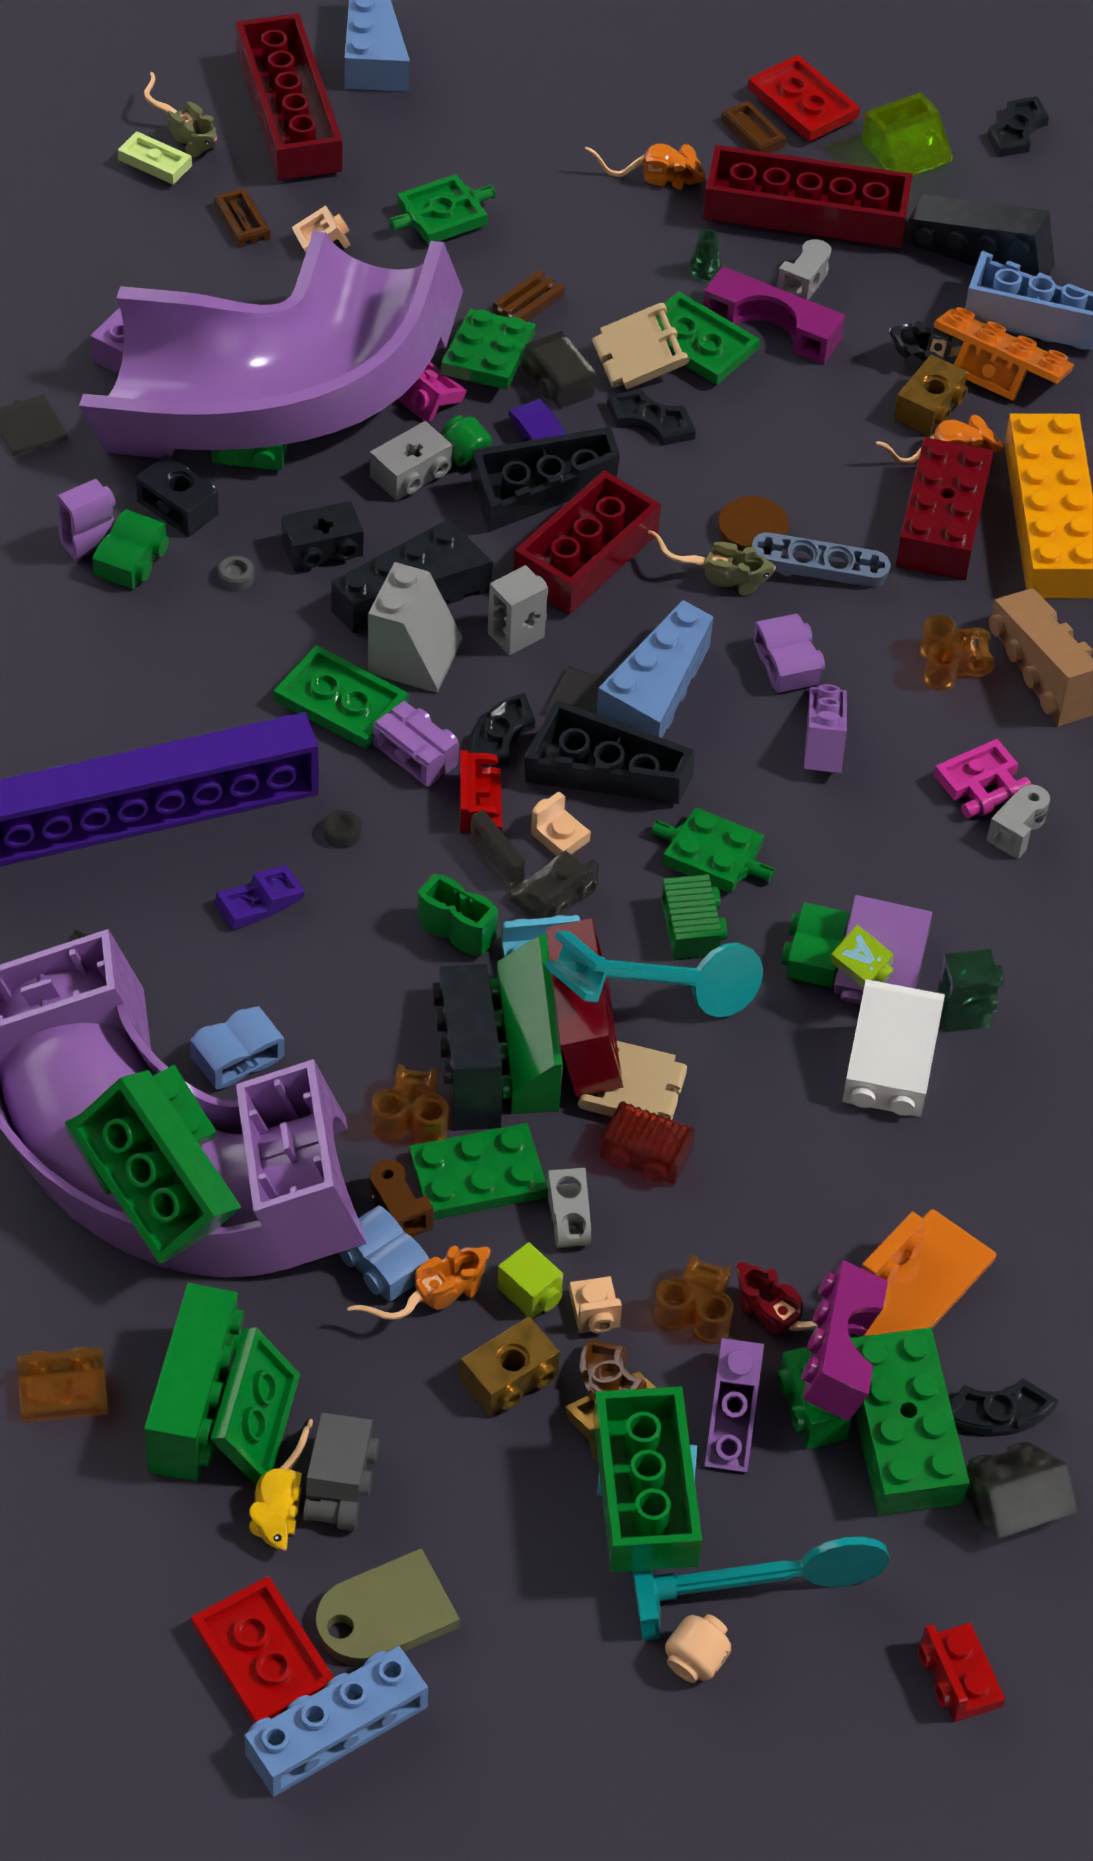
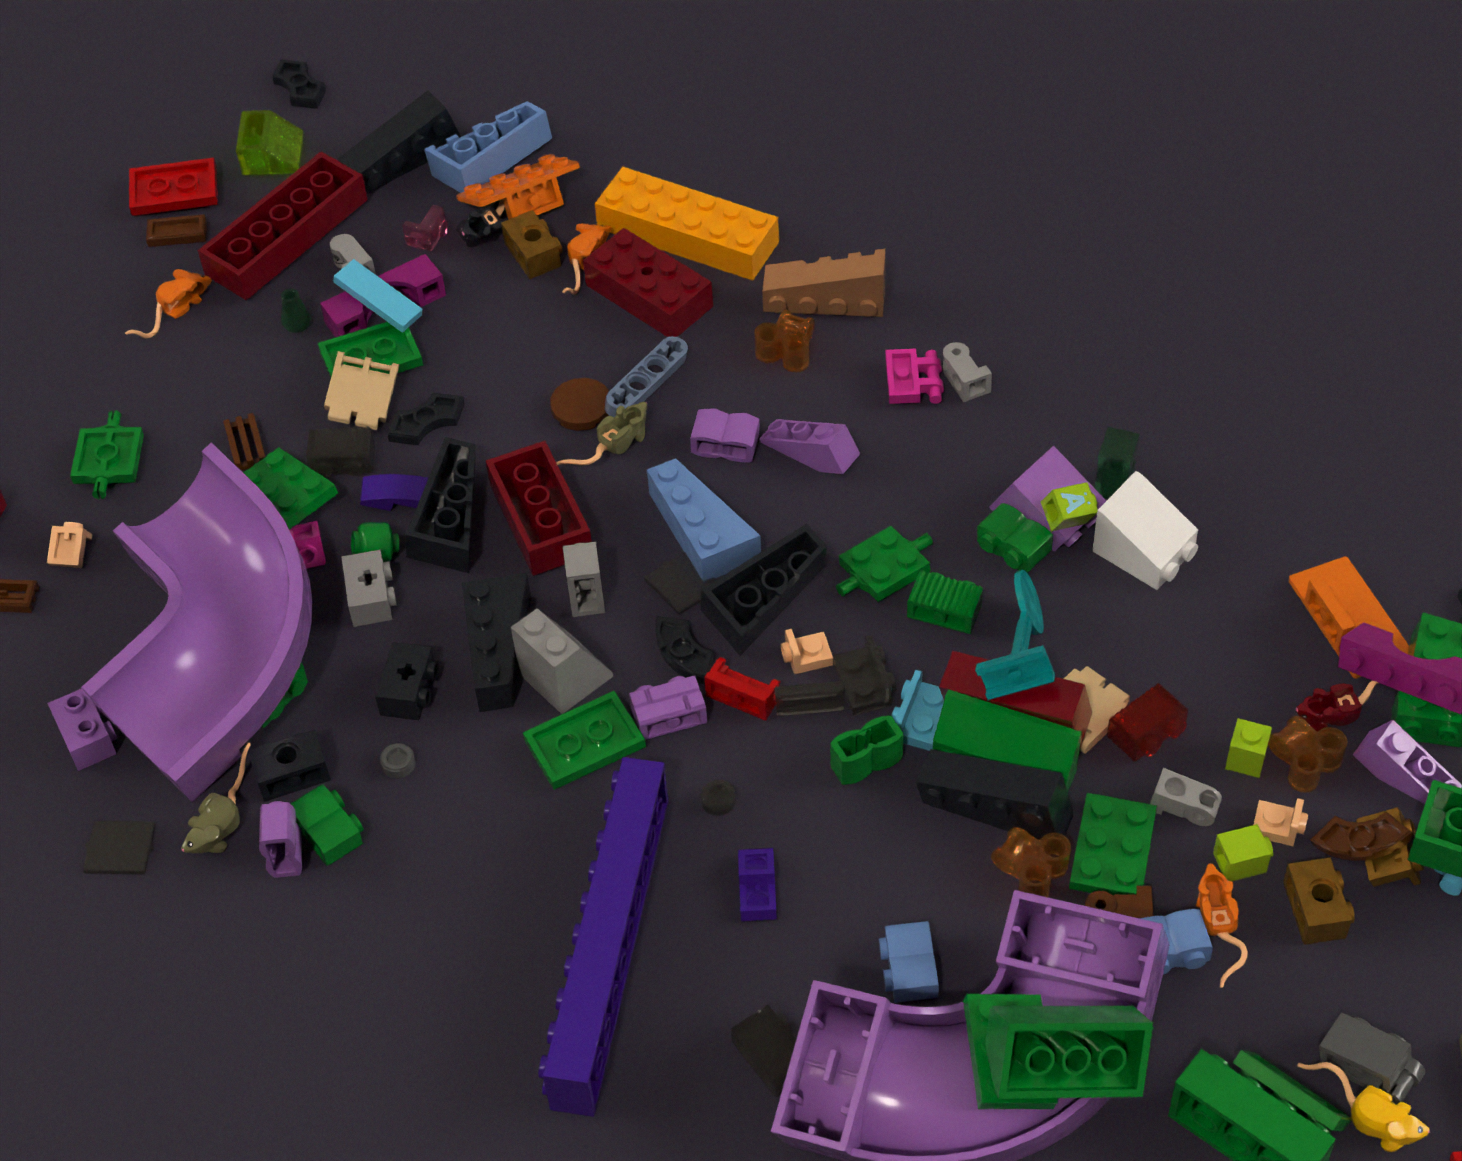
camera: 55 degrees left, 0 degrees up
(79, 469) = (216, 820): none -> olive animal
(667, 1241) = (1248, 748): none -> lime brick
(760, 302) = (377, 295): none -> medium azure tile
(891, 308) = (428, 232): none -> clear pink bracket

